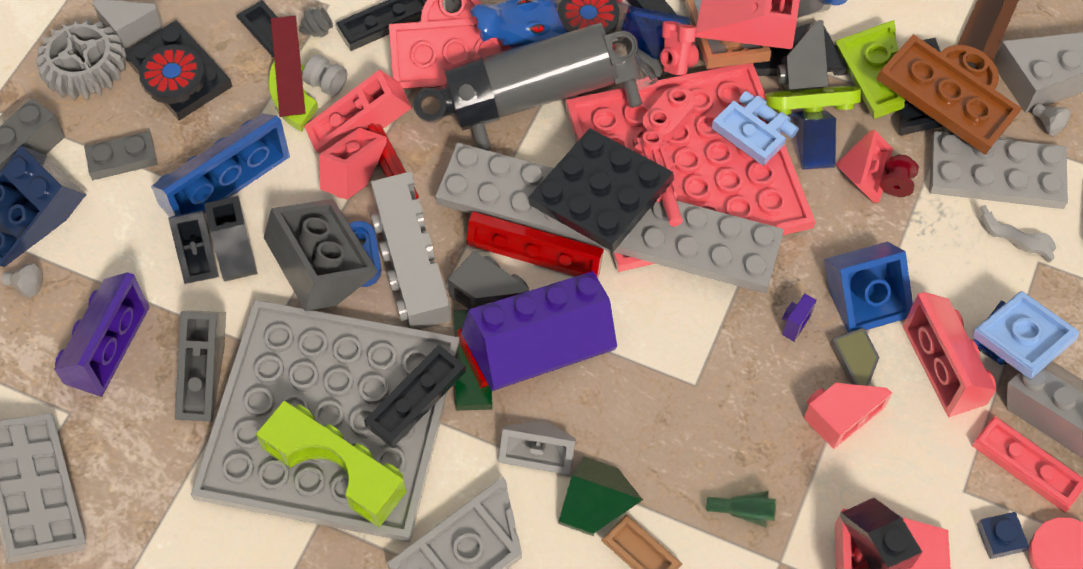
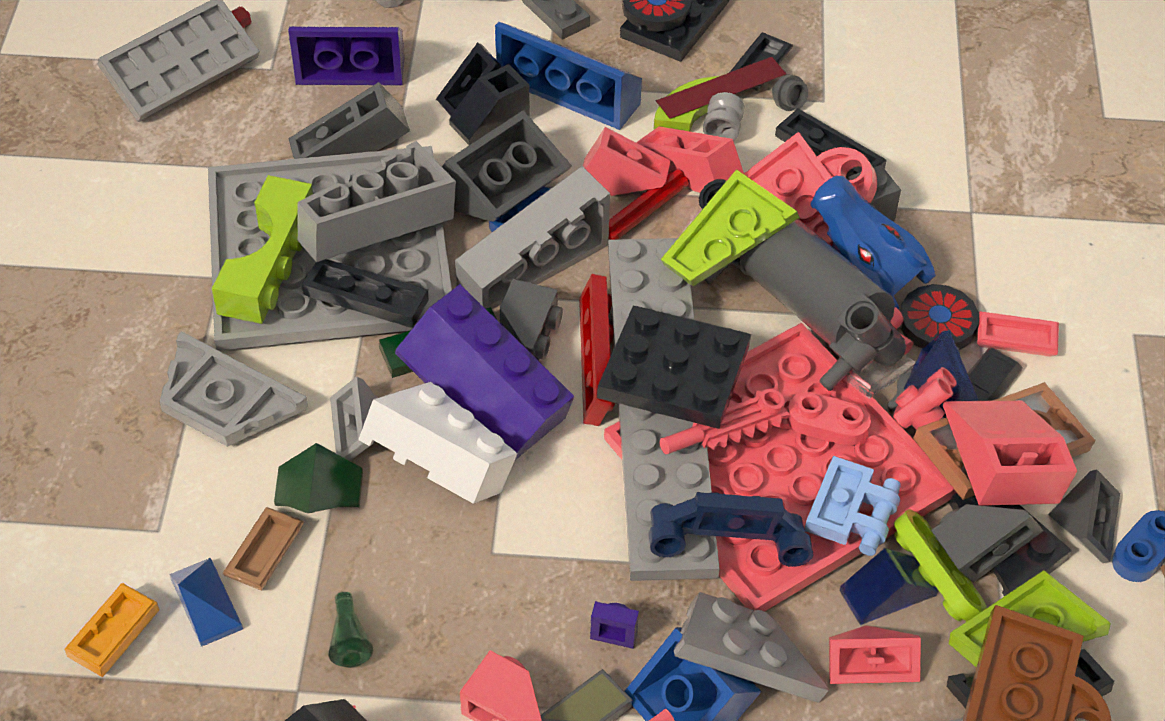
camera: 70 degrees right, 10 degrees down
(331, 341) = (377, 205): none -> light grey wedge
(485, 99) = (726, 228): none -> lime wing
(595, 381) = (442, 438): none -> white wedge
(759, 185) = (730, 517): none -> dark blue plate
(852, 236) = (746, 646): none -> light grey wing
(900, 172) = (879, 689): dark red wheel -> none

